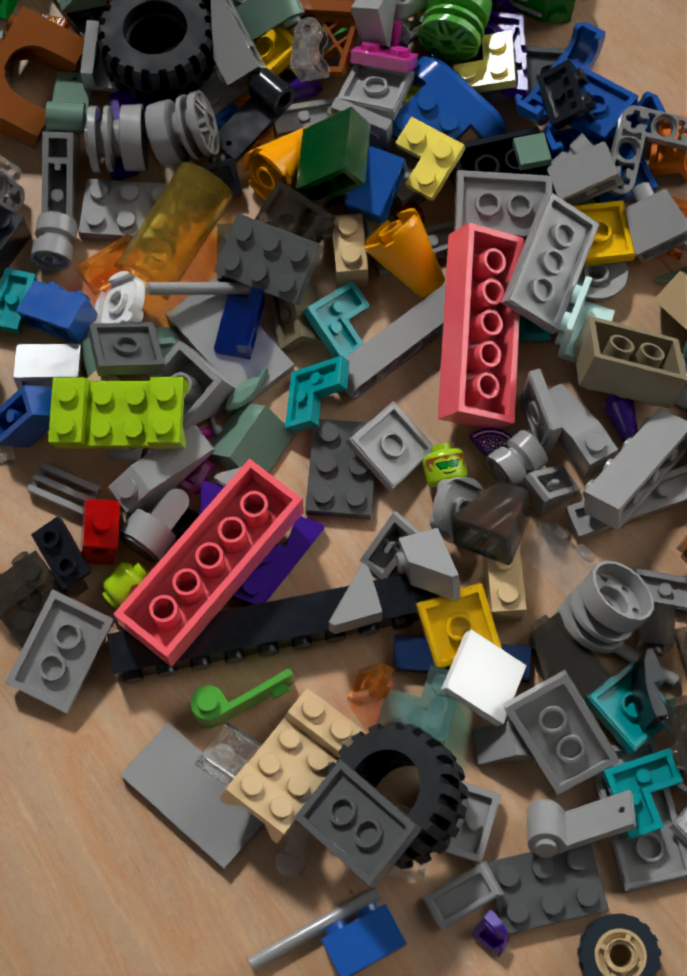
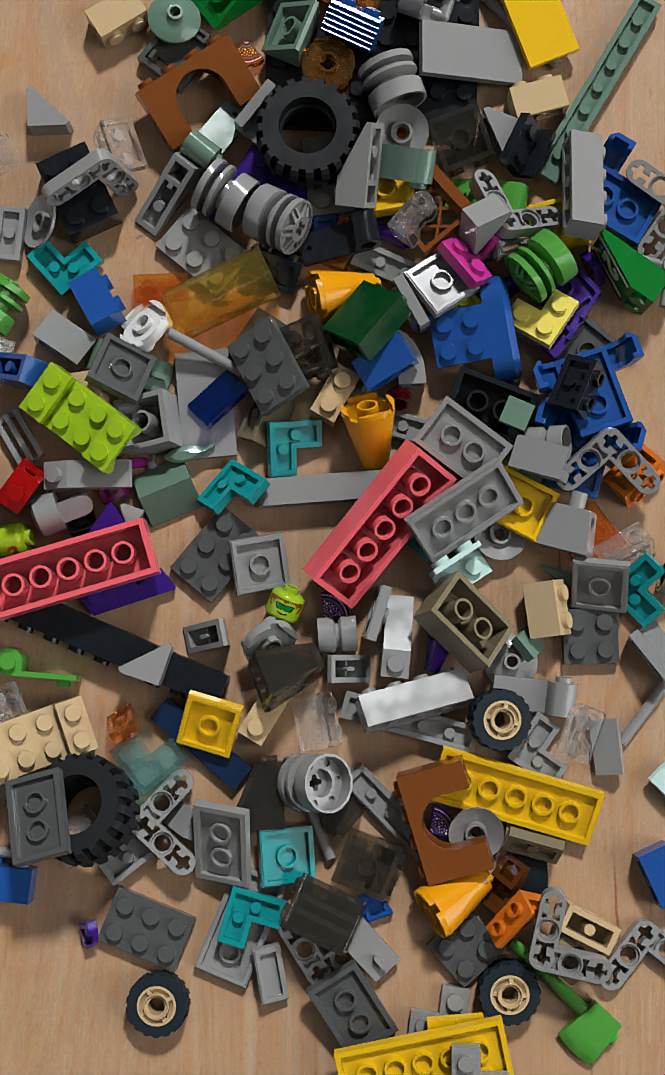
camera: 30 degrees right, 15 degrees up
(55, 238) = (132, 242): light grey wheel -> none
(428, 563) = (215, 670): light grey slope -> none
(436, 153) = (446, 368): light yellow plate -> none
(463, 895) = (88, 897): light grey tile -> none
(473, 760) = (156, 816): none -> light grey beam
(483, 677) = (198, 771): white tile -> none
(556, 831) = (178, 902): light grey door -> none
(646, 680) = (306, 847): black slope -> none

